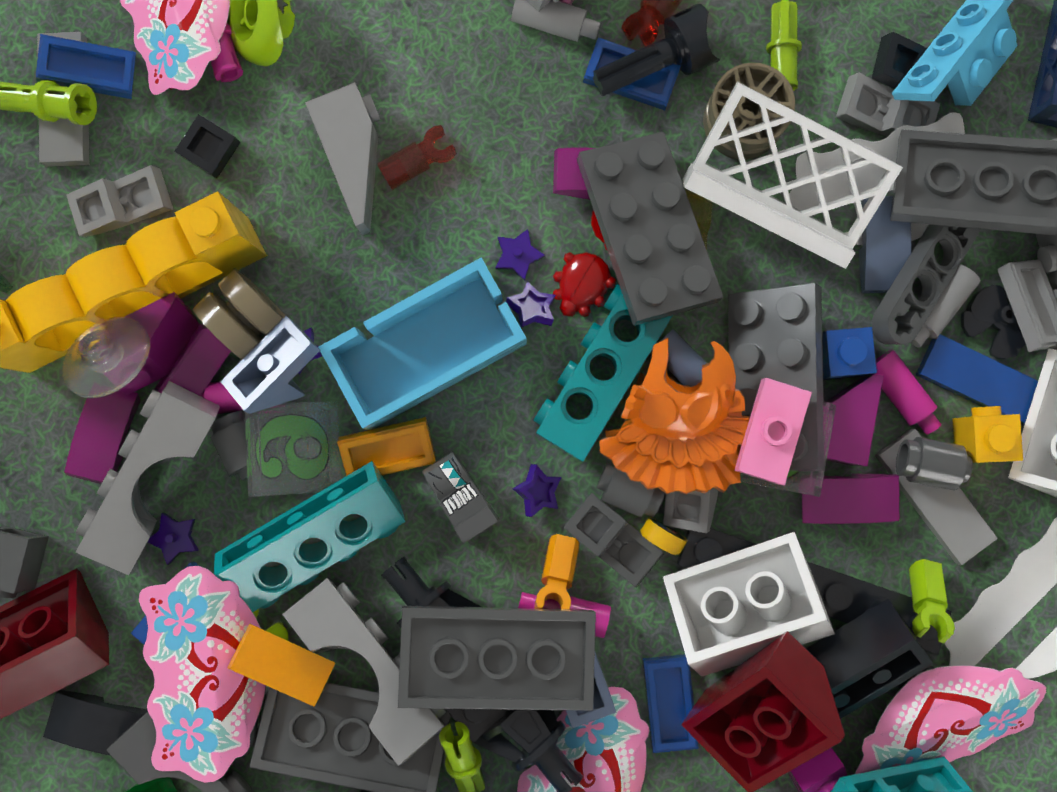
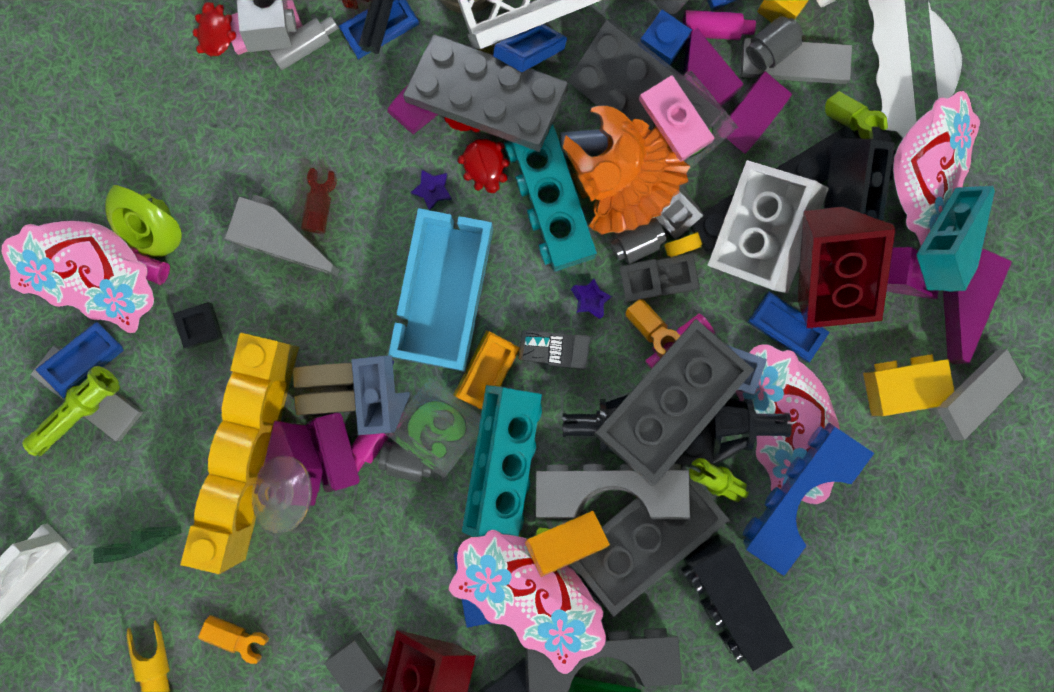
camera: 55 degrees left, 0 degrees up
(101, 435) = (327, 544): magenta slope -> none
(118, 203) = (186, 410): light grey slope -> none
(123, 525) = (394, 577): light grey arch -> none
(173, 537) = (428, 552): dark purple piece -> none
(532, 306) = (473, 205): piece -> none
(727, 232) = (530, 47): none -> blue tile

